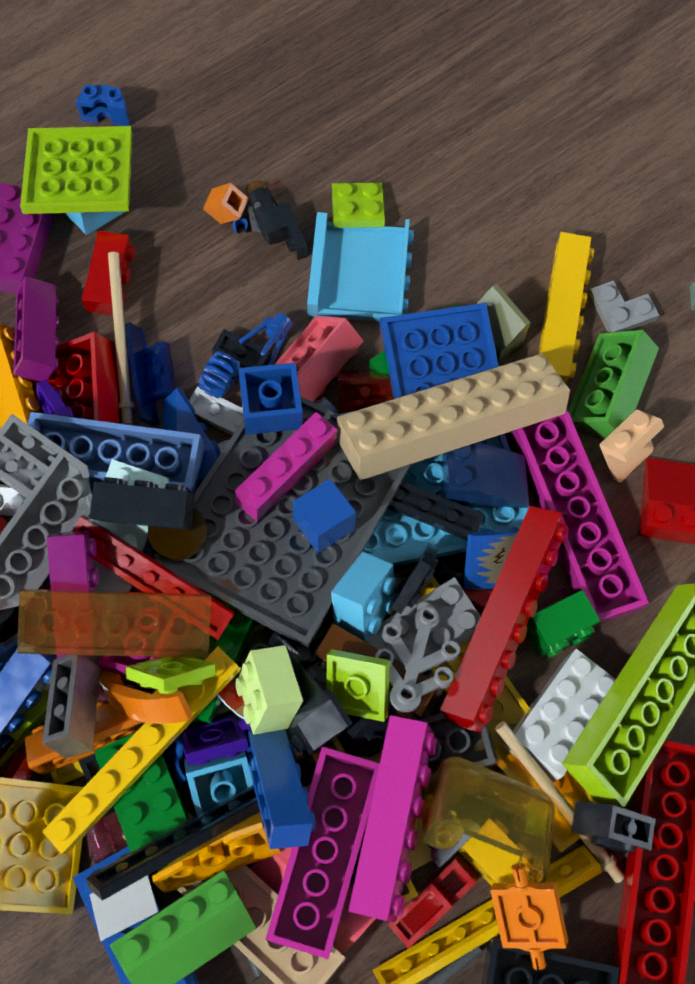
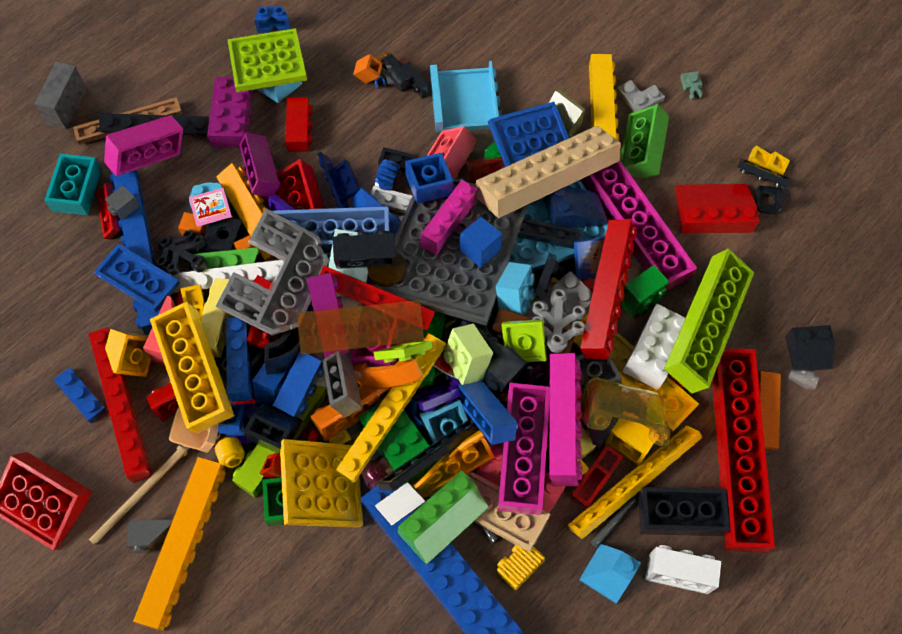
camera: 10 degrees left, 5 degrees down
(120, 339) = (315, 159): tan bar -> none
(276, 330) = (418, 142): blue plant -> none
(357, 205) = (454, 58): lime plate -> none
(529, 915) = (663, 463): orange plate -> none
(606, 861) = (705, 431): tan bar -> none
(613, 827) = (704, 403): black brick -> none
(630, 443) = (663, 175): light nougat bracket -> none

